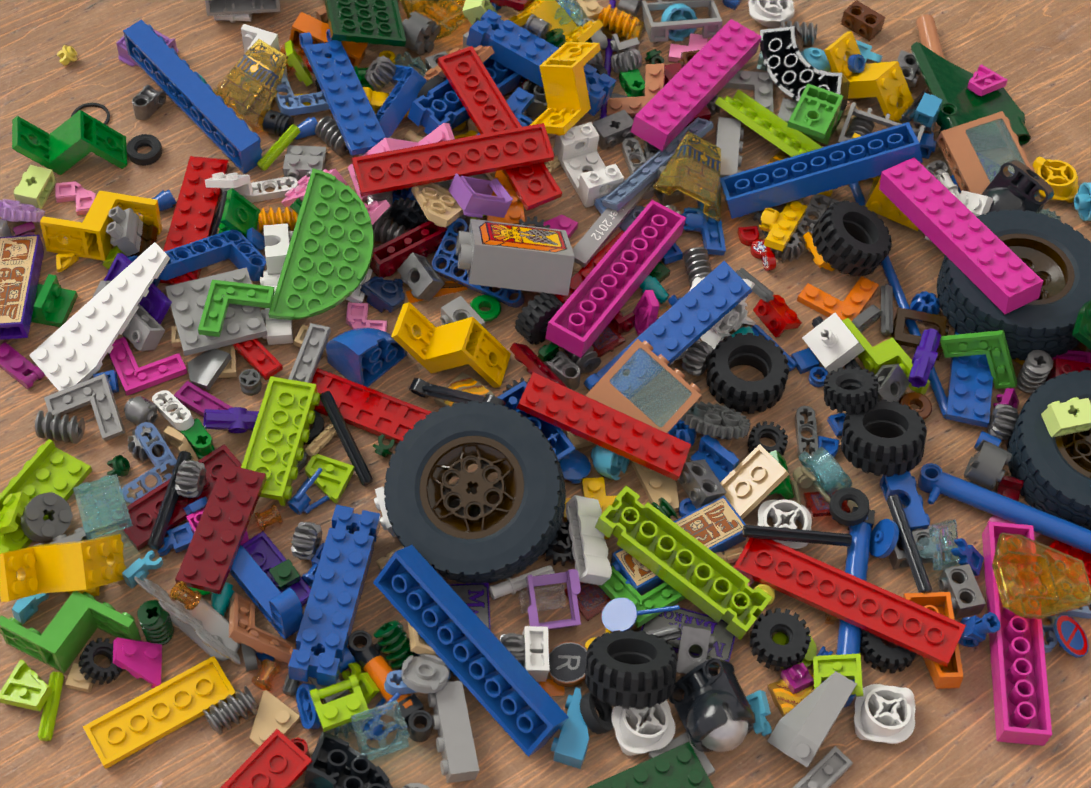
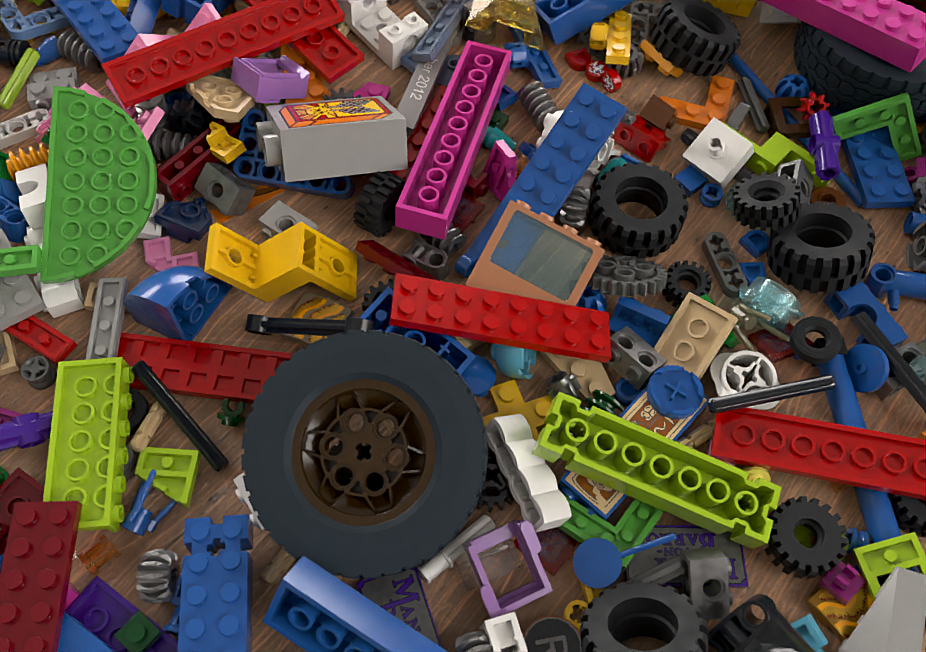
camera: 15 degrees left, 5 degrees up
(429, 242) = (223, 145): none -> yellow slope
(486, 301) = (313, 199): green piece -> none
(548, 351) = (401, 242): dark green plate -> none
(642, 489) = (564, 383): none -> flat silver gear
(722, 515) = (674, 392): none -> blue tile
(798, 298) = (659, 113): none -> reddish brown brick
(926, 319) = (806, 103): none -> red gear

